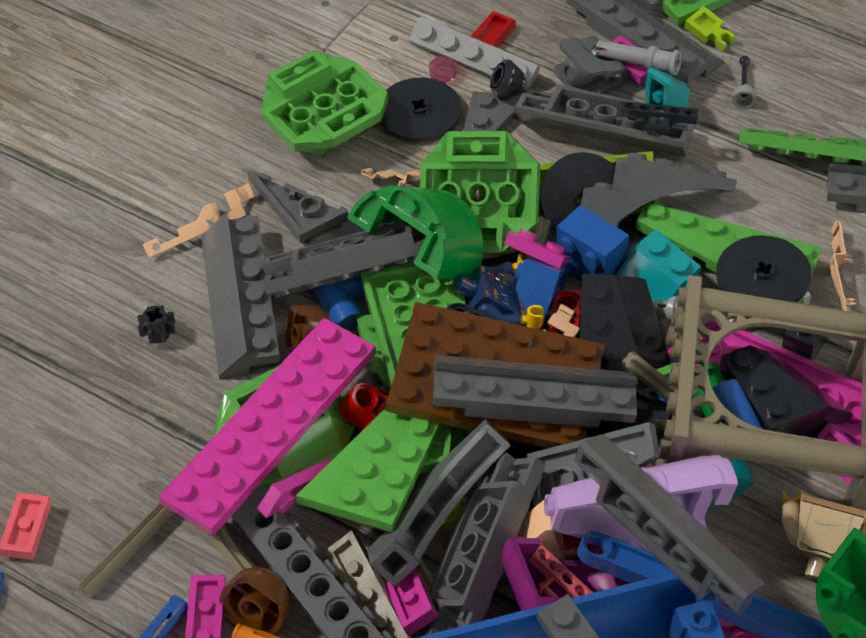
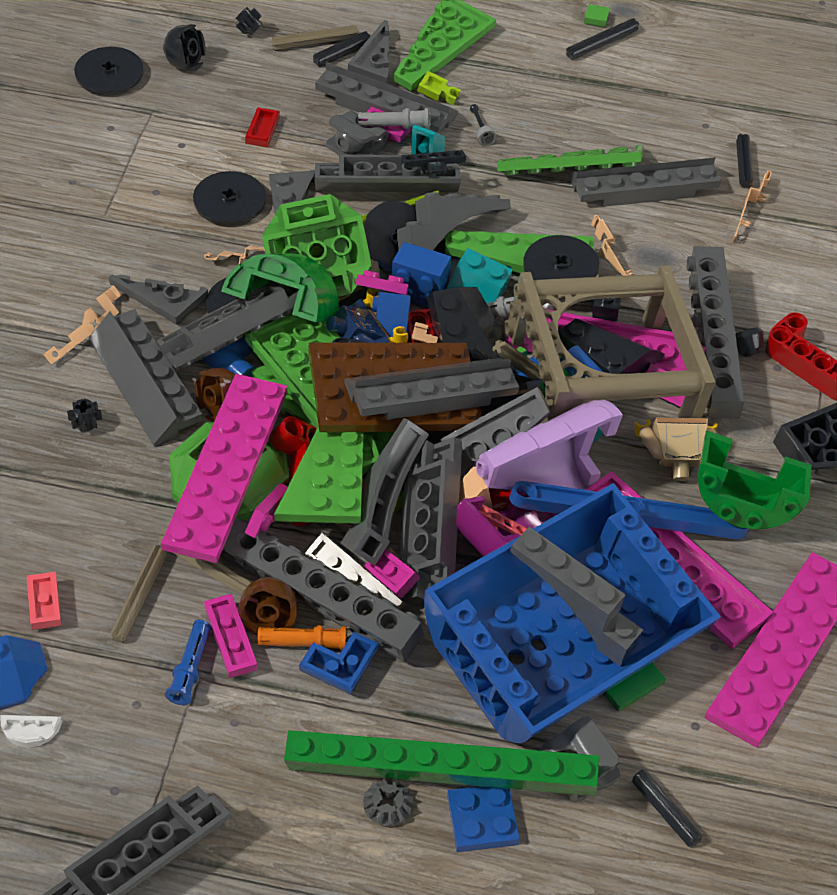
camera: 25 degrees left, 0 degrees up
(321, 102) = (150, 207): bright green piece -> none
(442, 69) = (235, 161): clear pink tile -> none
(467, 50) = (257, 144): light grey plate -> none
(507, 79) = (296, 158): black cone -> none
(666, 526) = (584, 458): dark grey slope -> none

